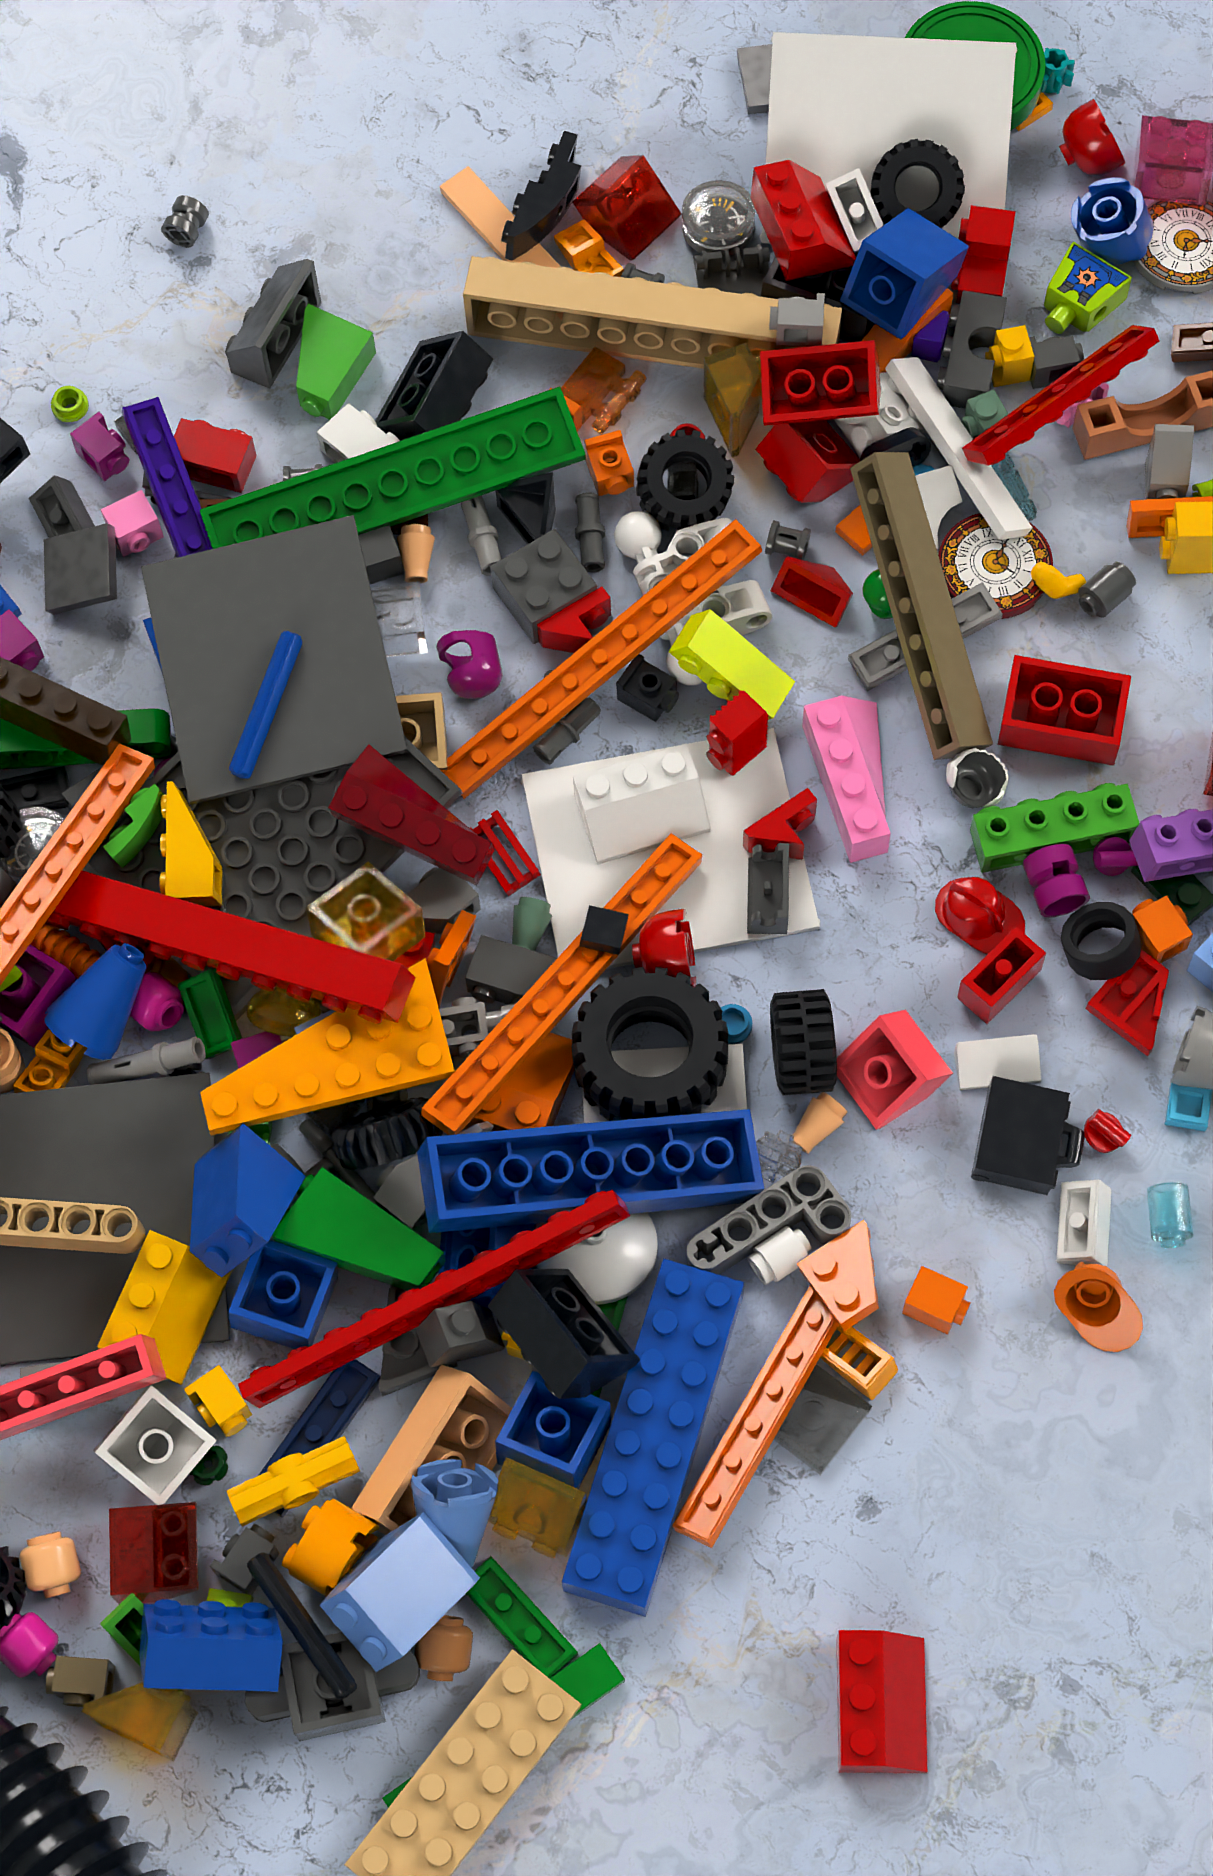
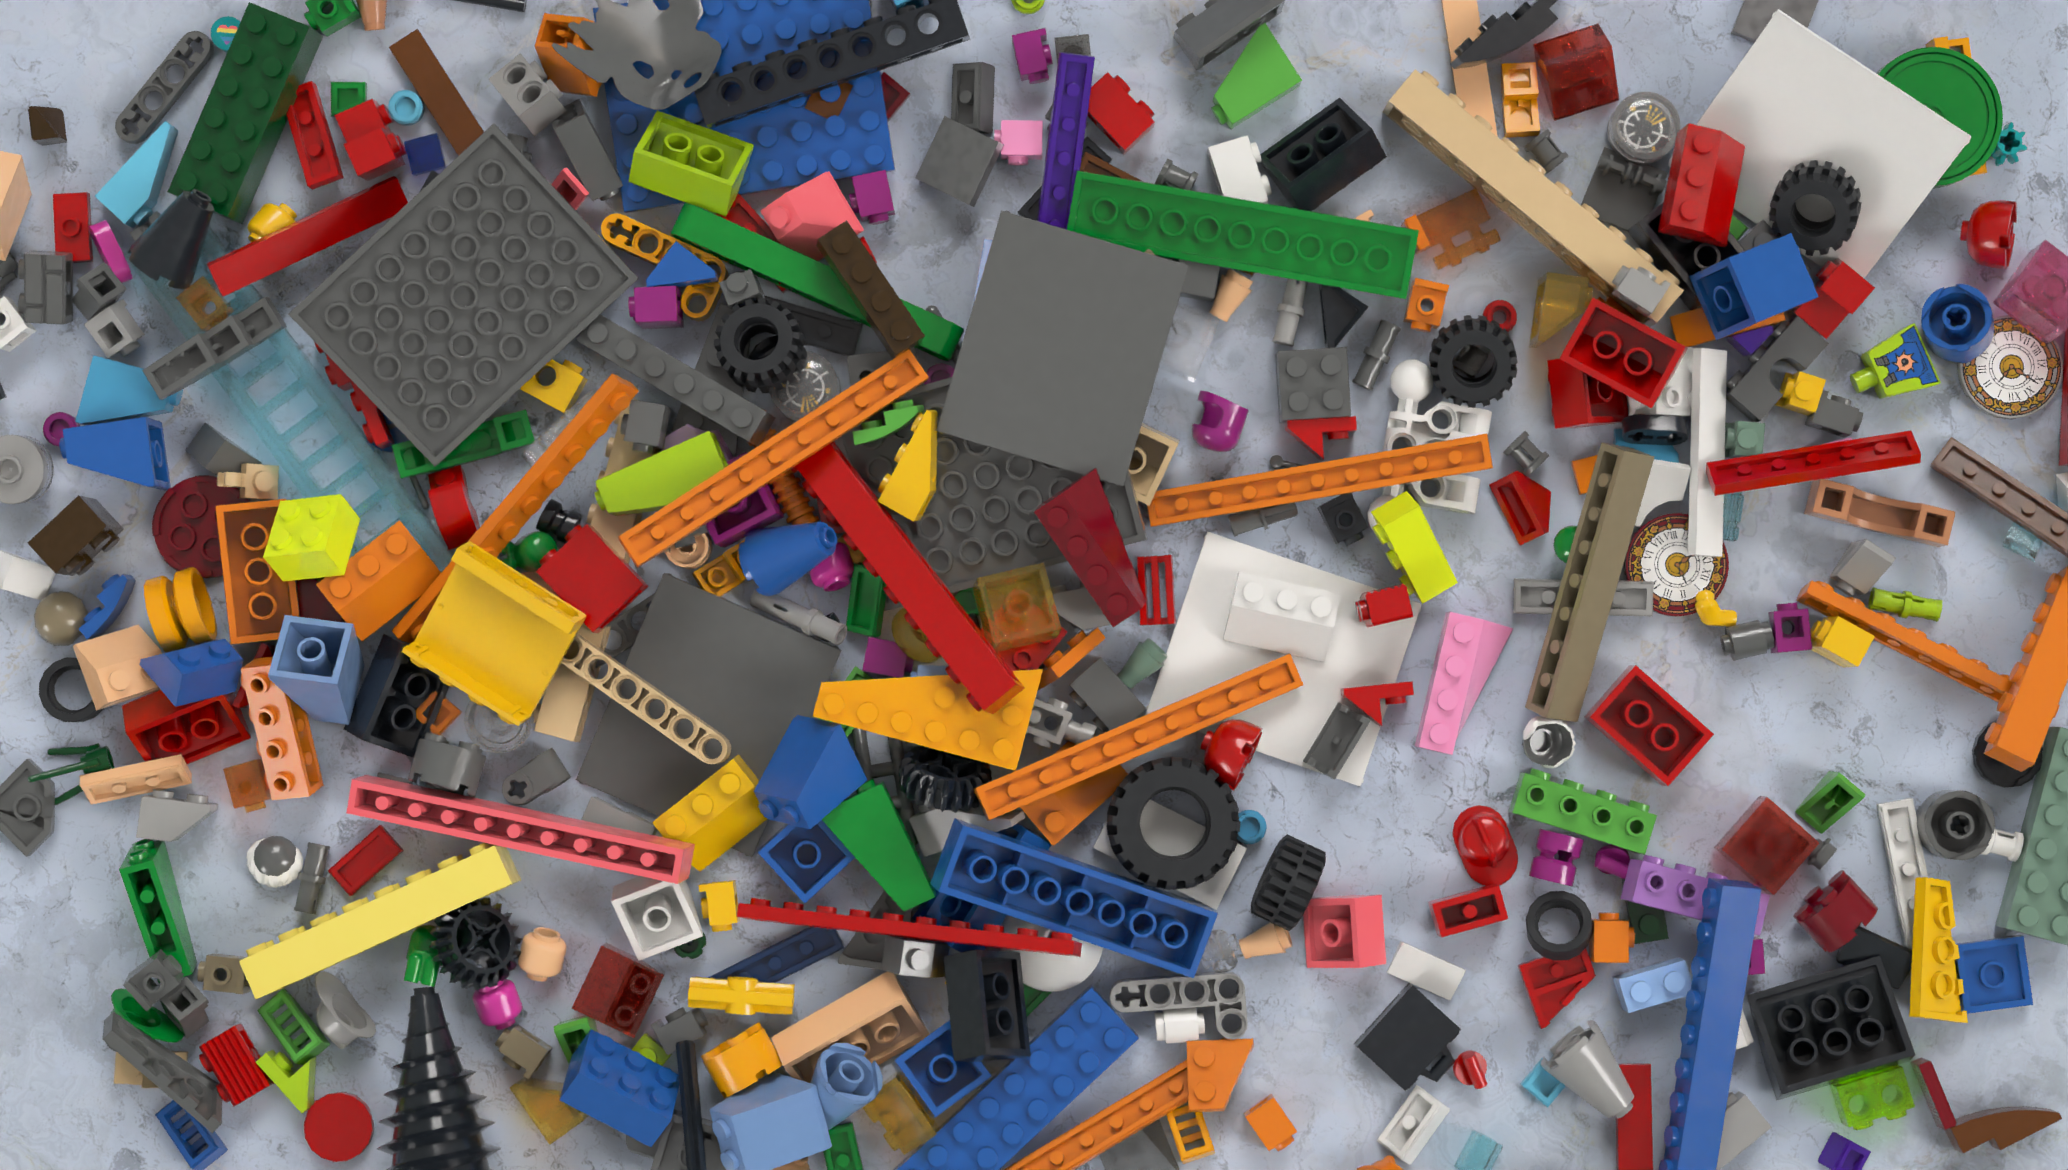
camera: 30 degrees right, 20 degrees up
(265, 705) = (1035, 389): blue axle -> none
(604, 930) = (1191, 713): black tile -> none
(854, 207) = (1752, 201): white slope -> none
(1145, 549) = (1800, 636): none -> magenta brick

